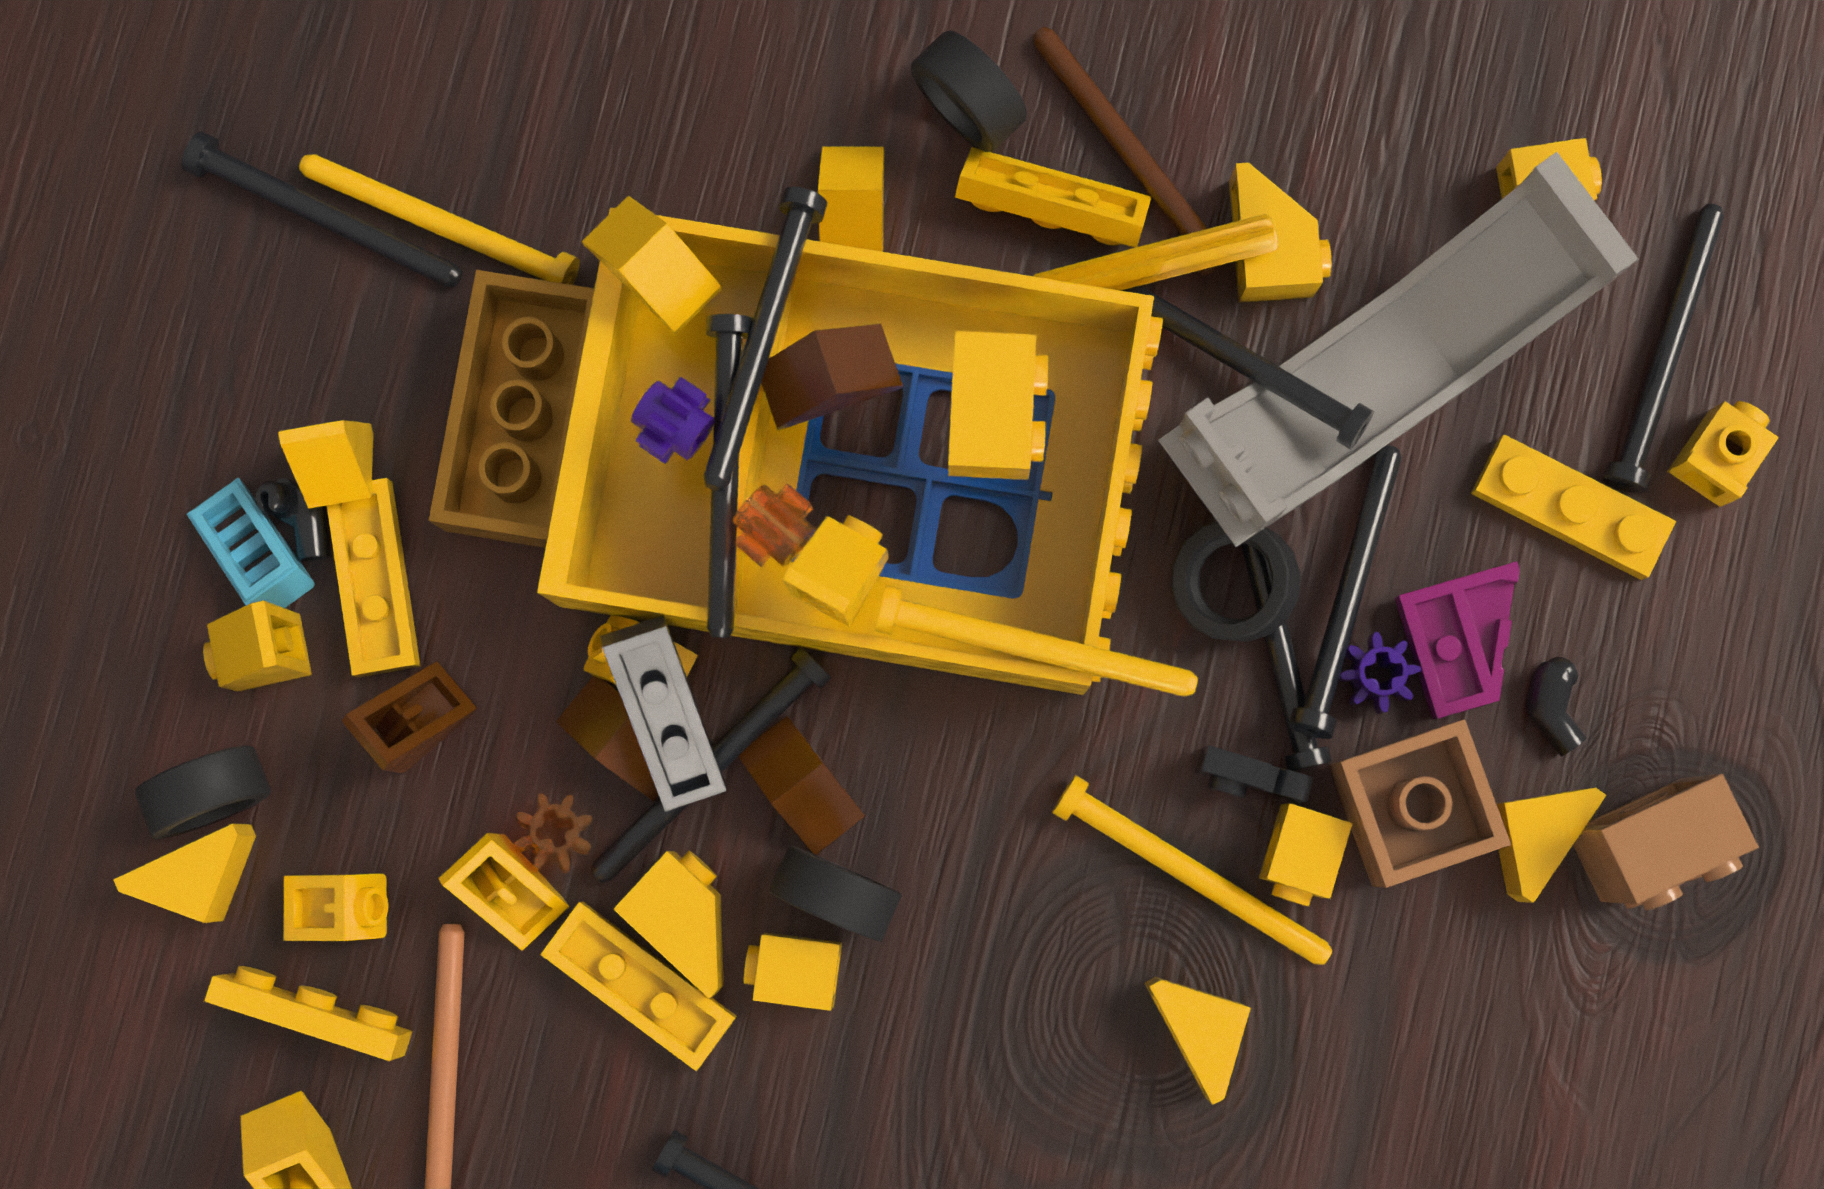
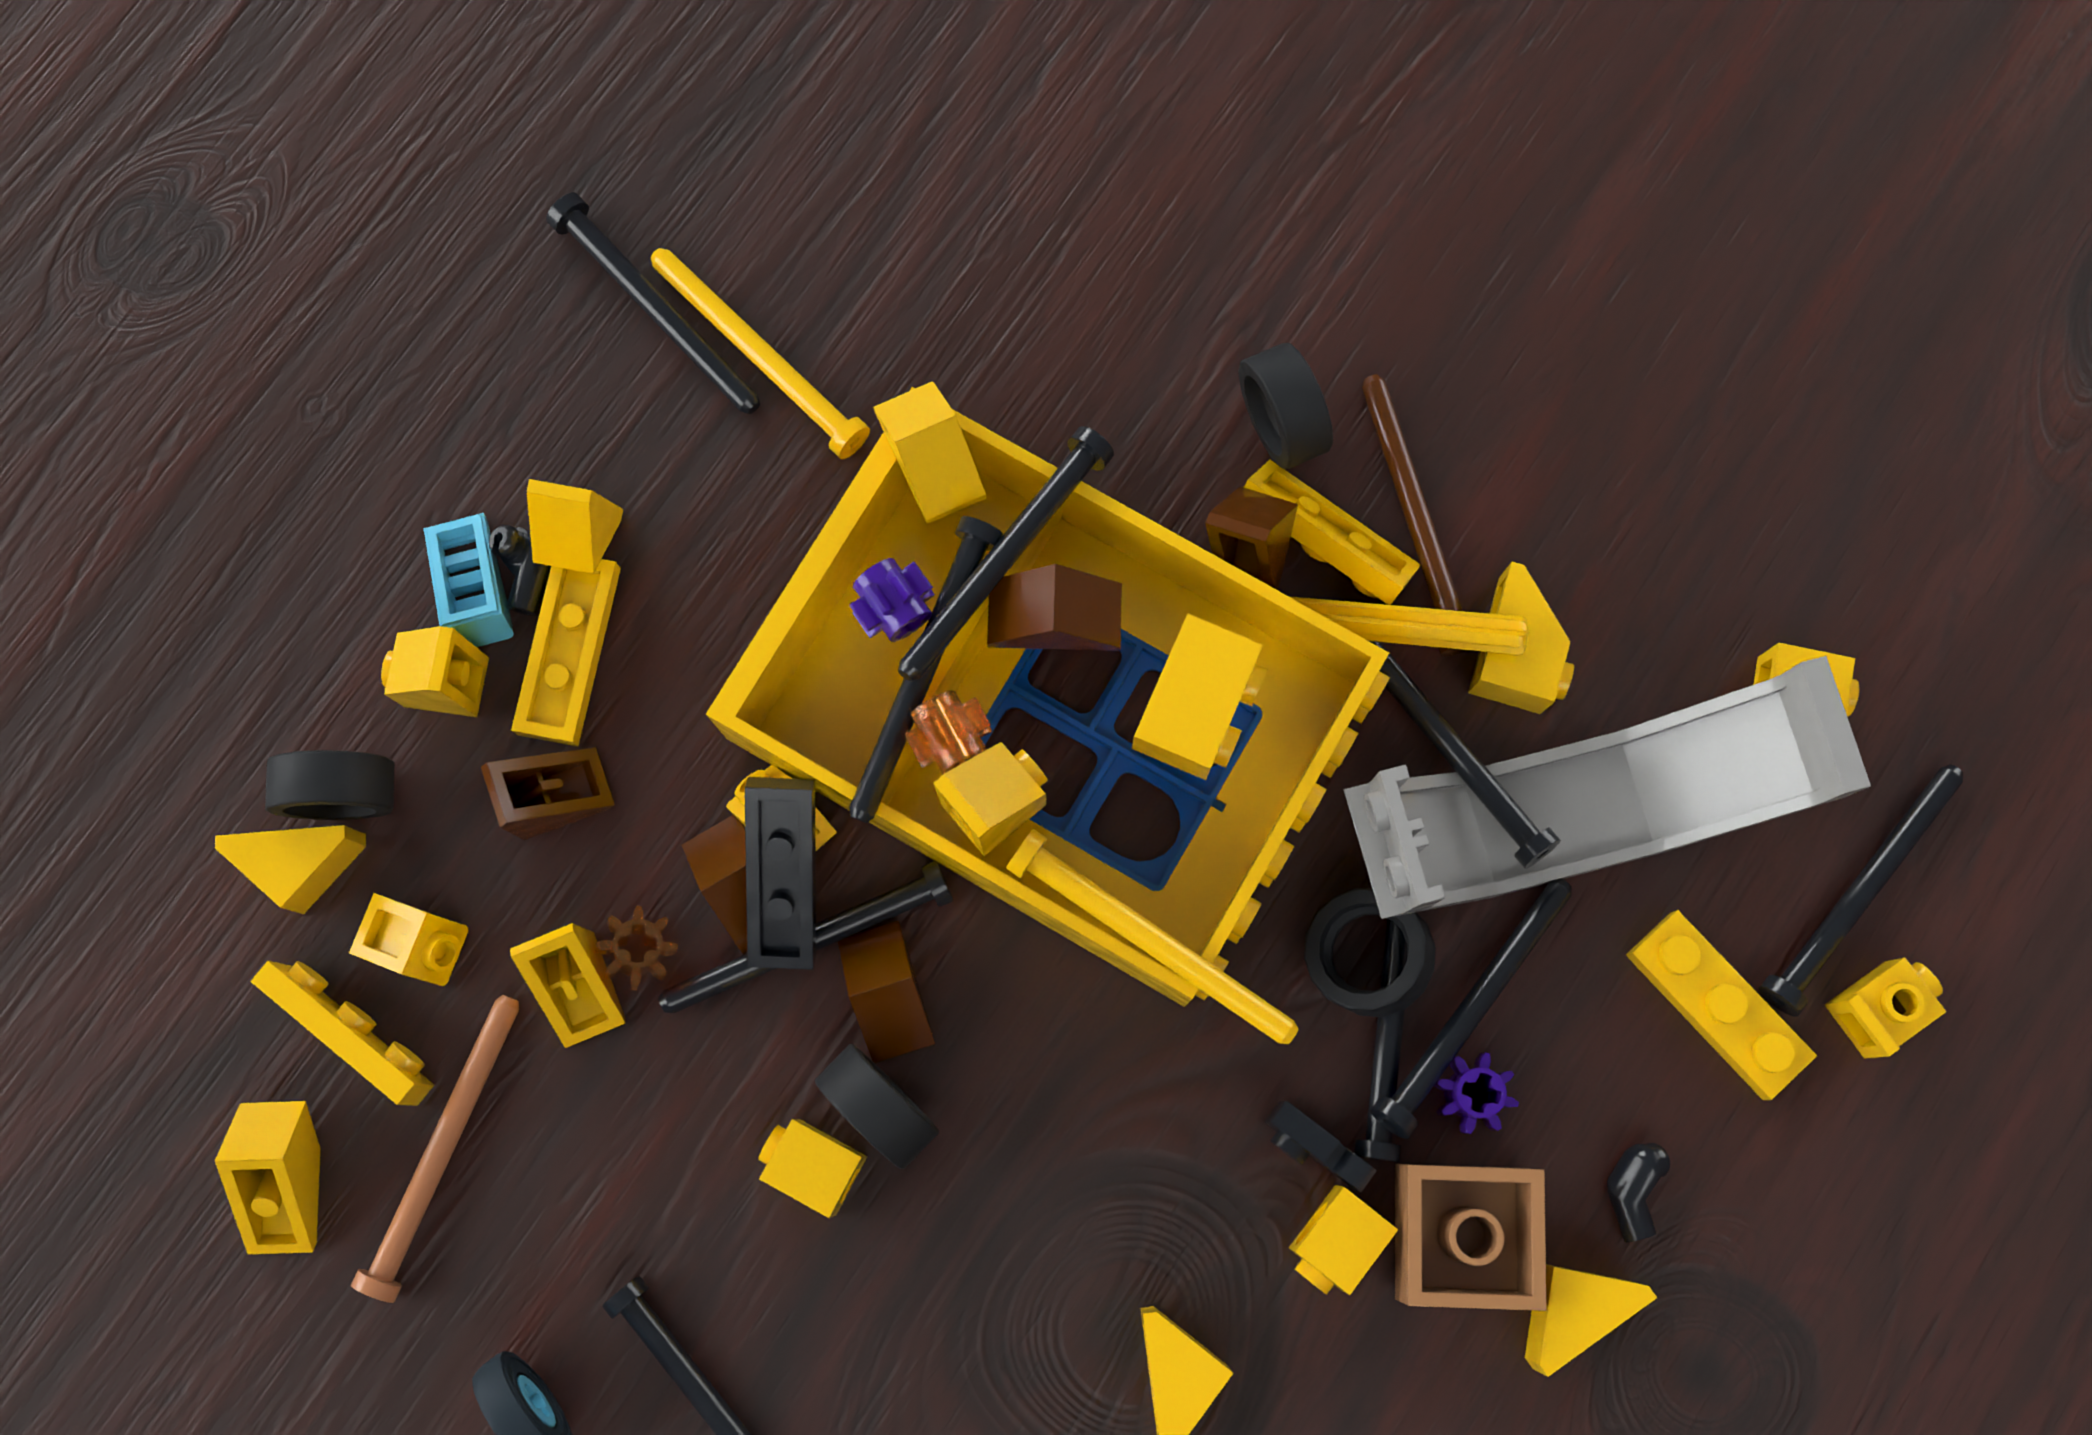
camera: 15 degrees right, 5 degrees down
(511, 408) = (749, 538): pearl gold brick -> none
(638, 985) = (659, 1124): yellow plate -> none
(680, 917) = (723, 1074): yellow slope -> none
(854, 192) = (1142, 462): yellow slope -> none
(983, 227) = (1252, 533): none -> reddish brown slope
(1190, 872) = (1225, 1218): yellow bar -> none
(1460, 637) = (1567, 1089): magenta wing -> none
(1665, 840) = (1700, 1366): medium nougat brick -> none

